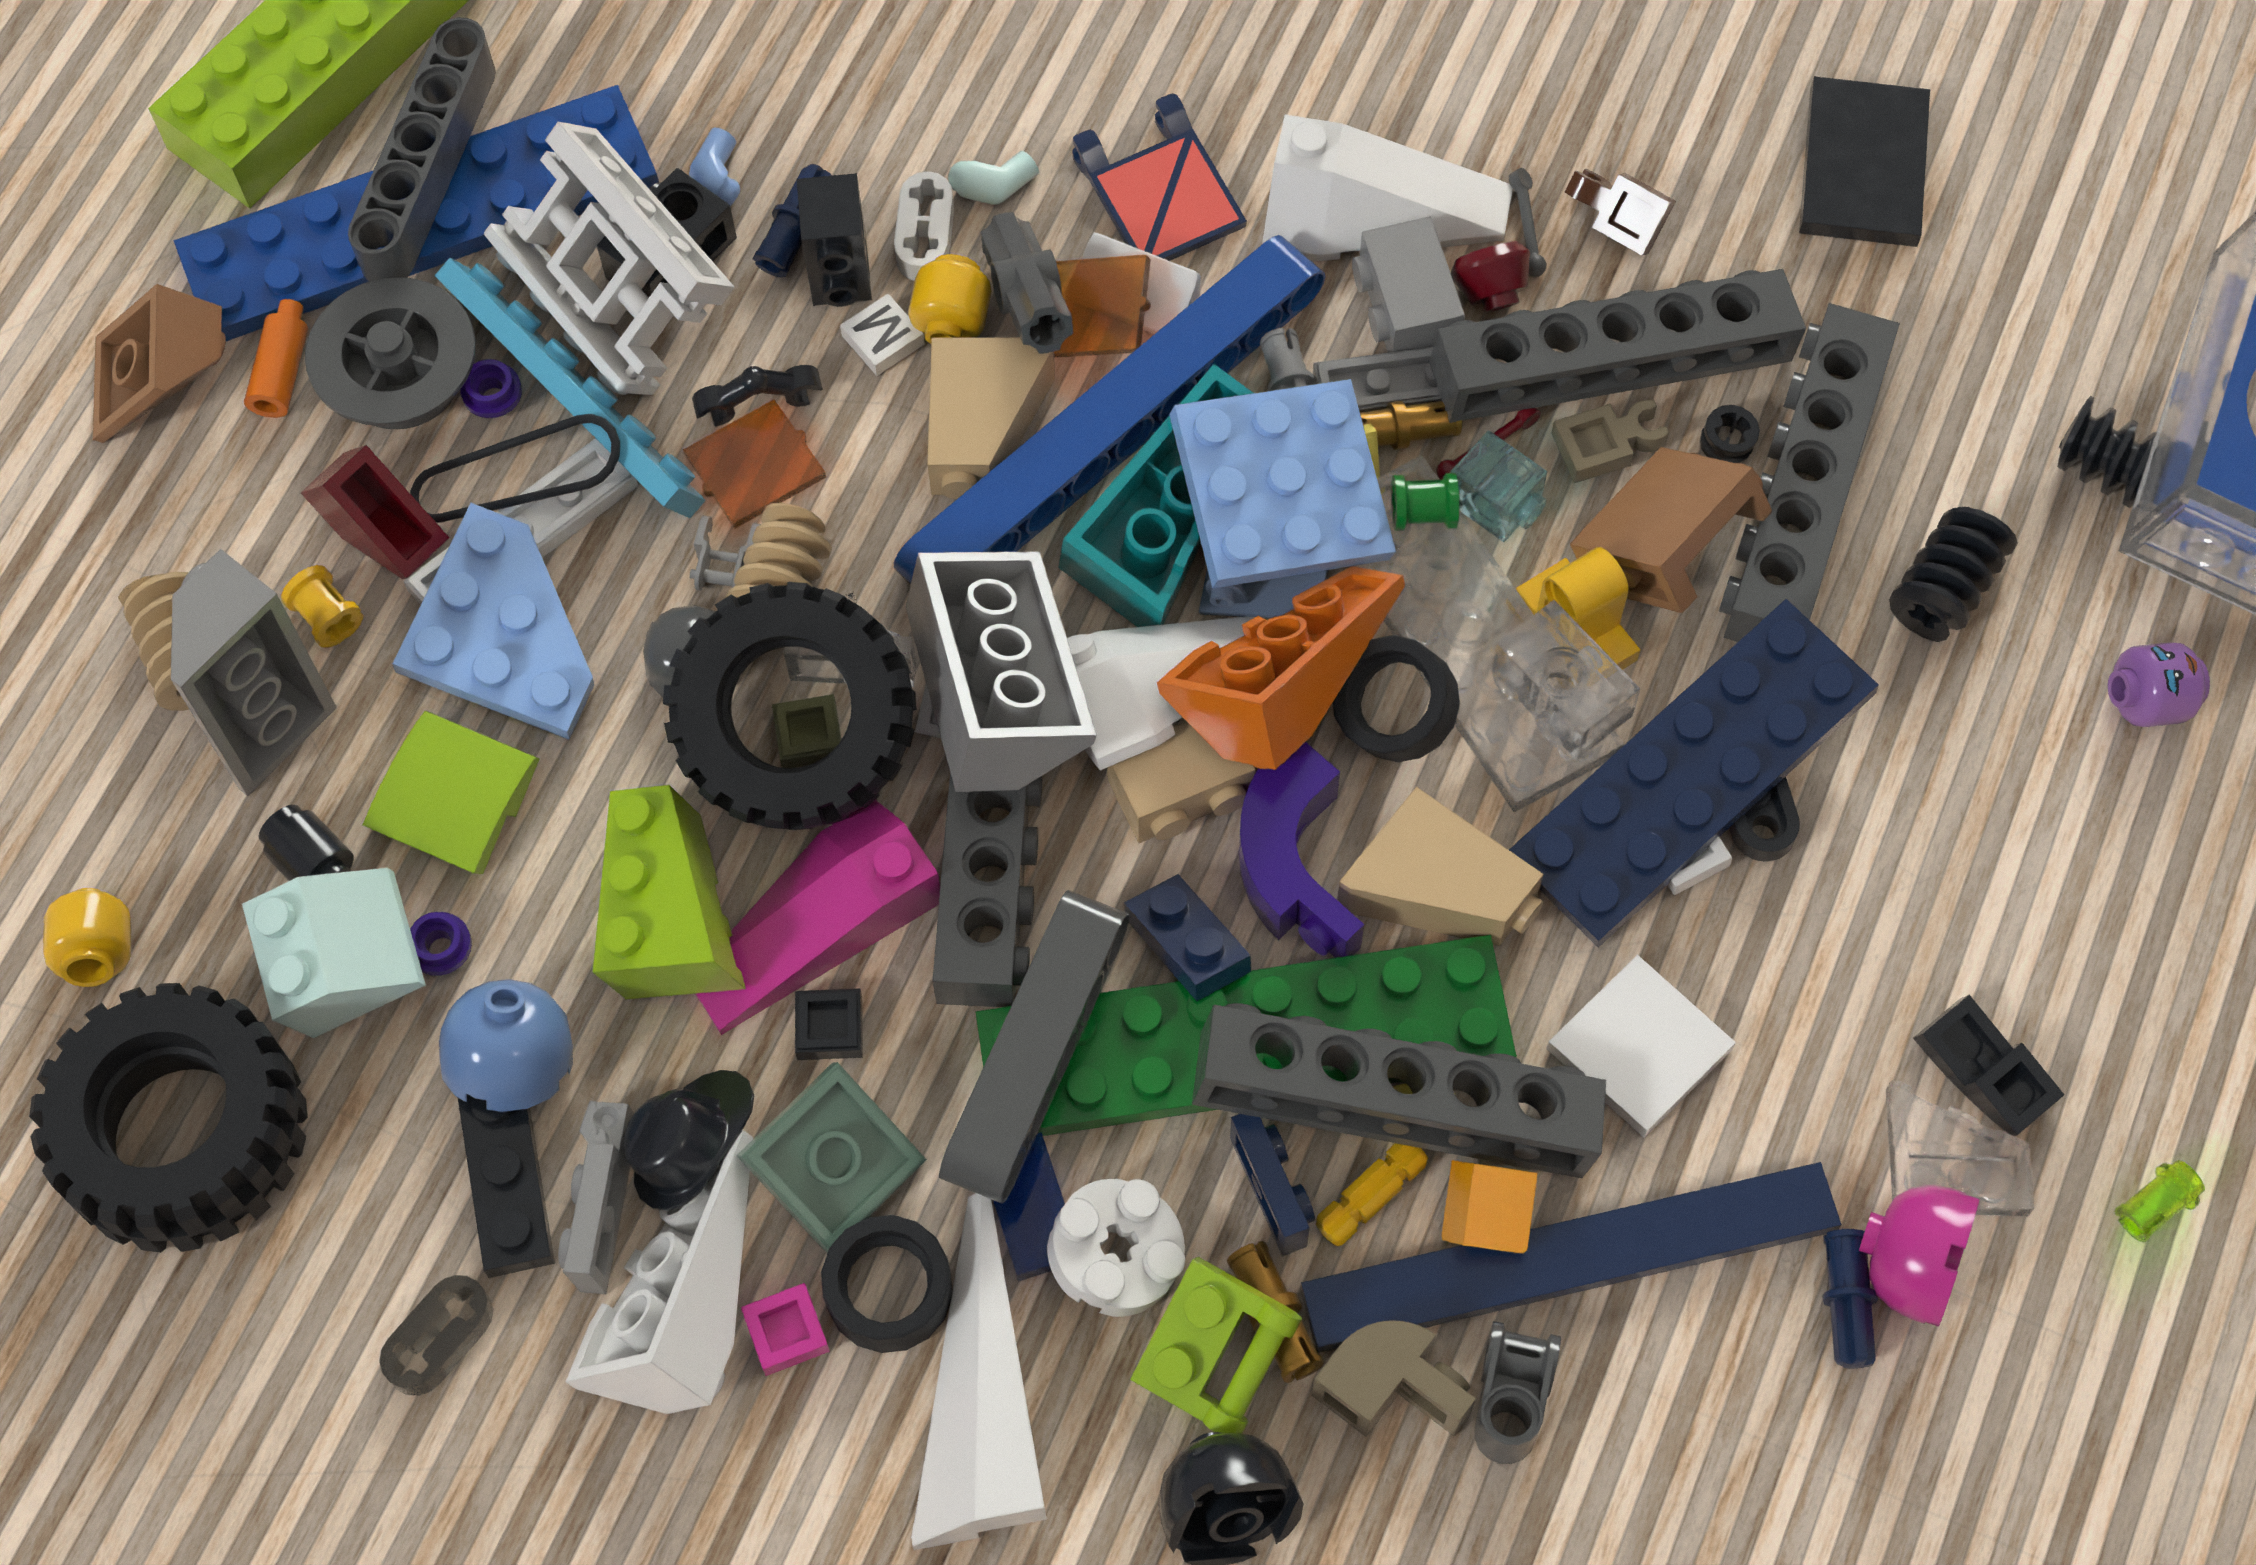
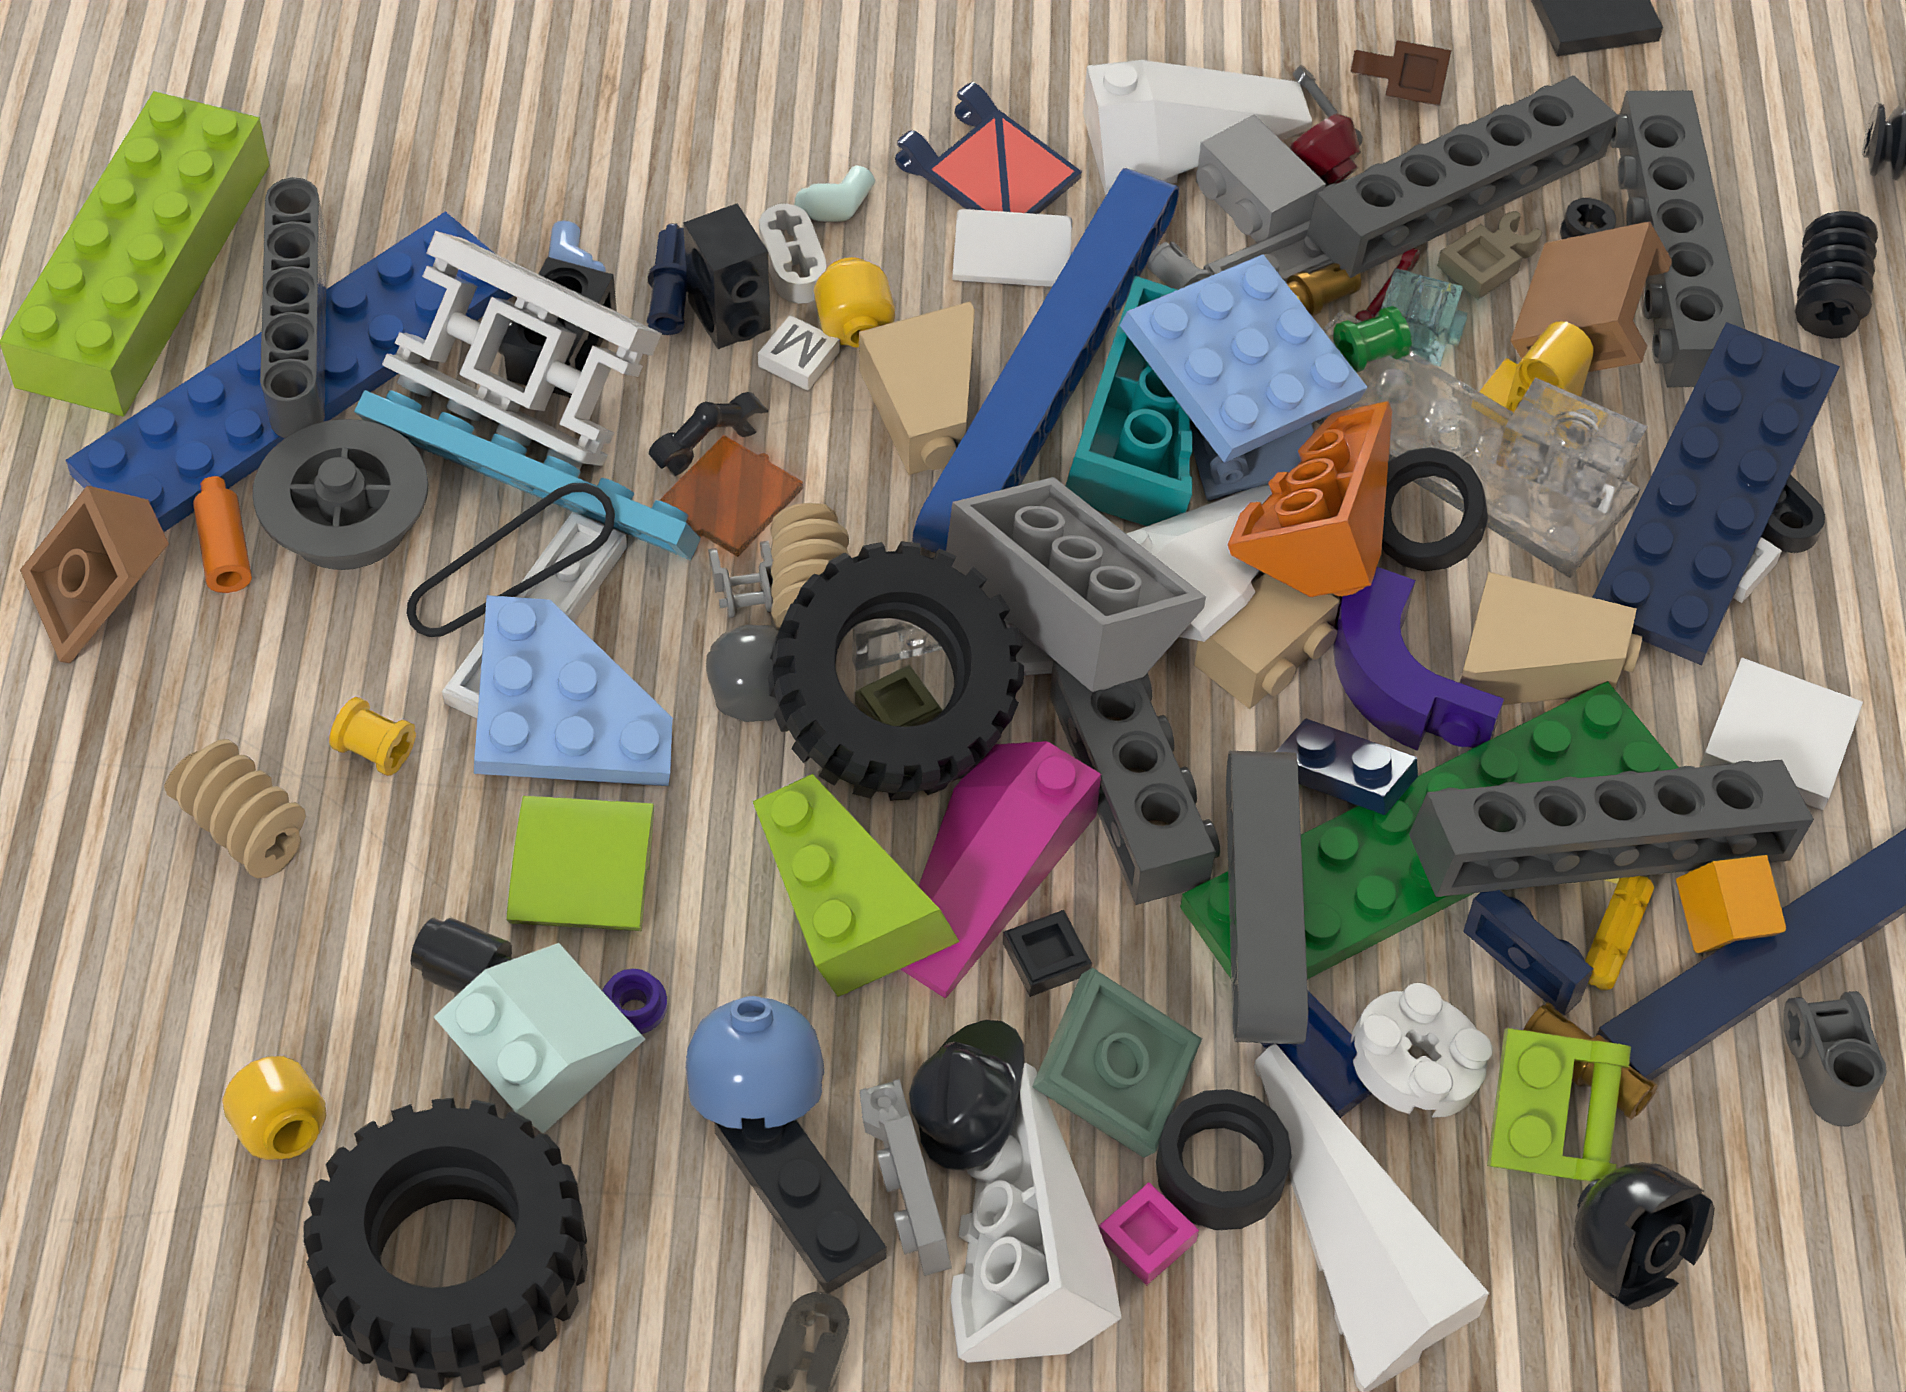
camera: 25 degrees left, 10 degrees down
(243, 670) = (355, 782): light grey slope -> none
(375, 512) = (387, 634): dark red slope -> none
(488, 375) = (449, 488): dark purple plate -> none
(1026, 283) = (923, 263): dark grey piece -> none
(1105, 304) = (991, 267): clear orange piece -> none
(1389, 1362) = (1719, 1070): dark tan brick -> none

